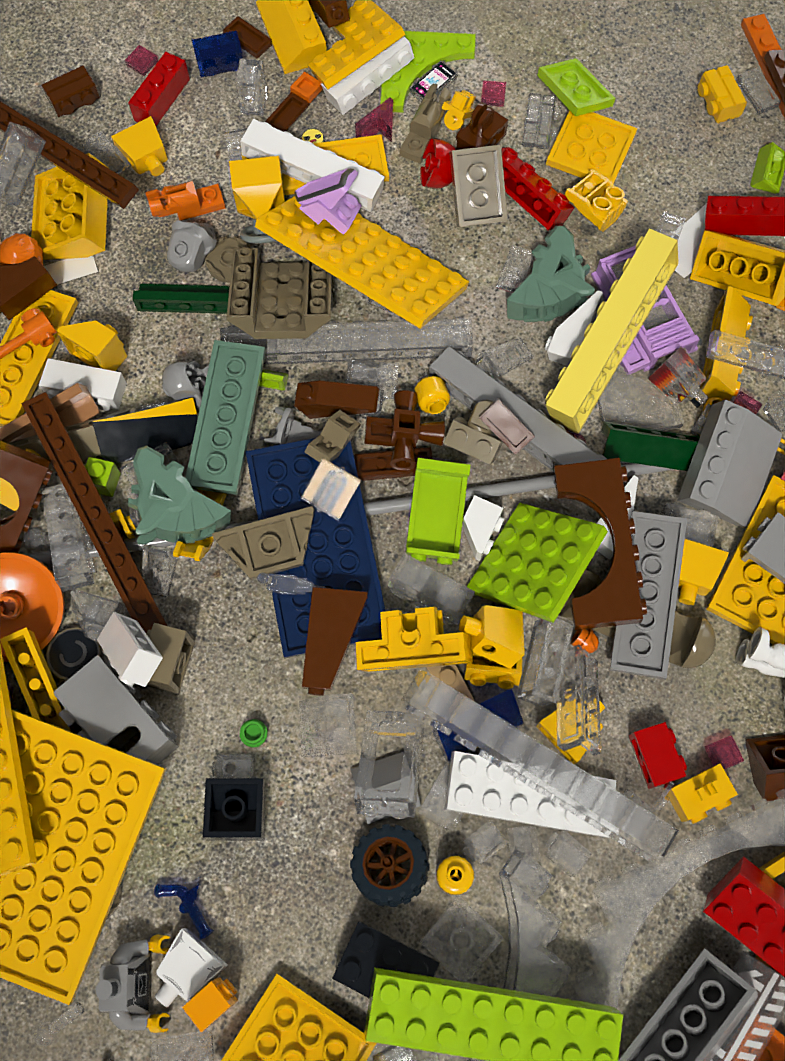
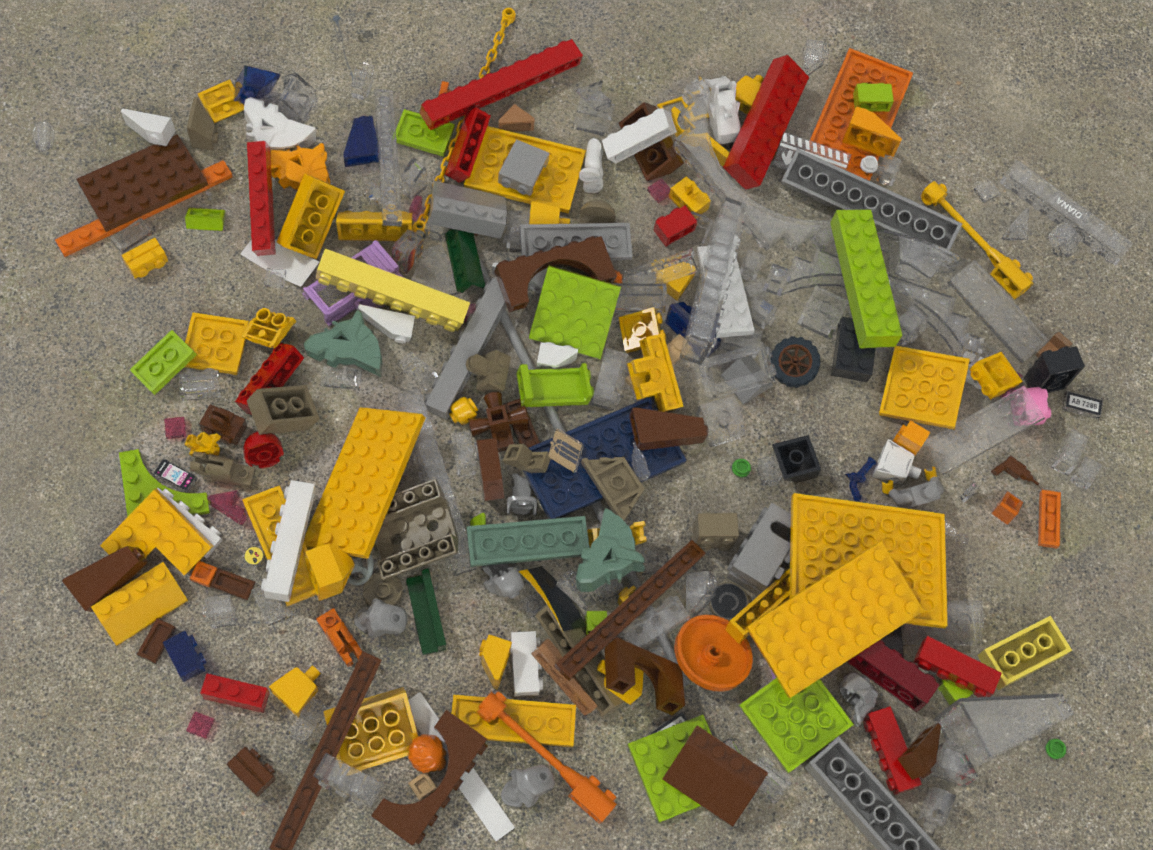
camera: 115 degrees left, 5 degrees down
(129, 650) = (723, 544): white brick -> none
(329, 199) = (327, 510): lavender piece -> none
(444, 878) = (787, 324): yellow head -> none
(496, 634) = (634, 324): yellow torso -> none
(506, 426) = (485, 346): tile -> none

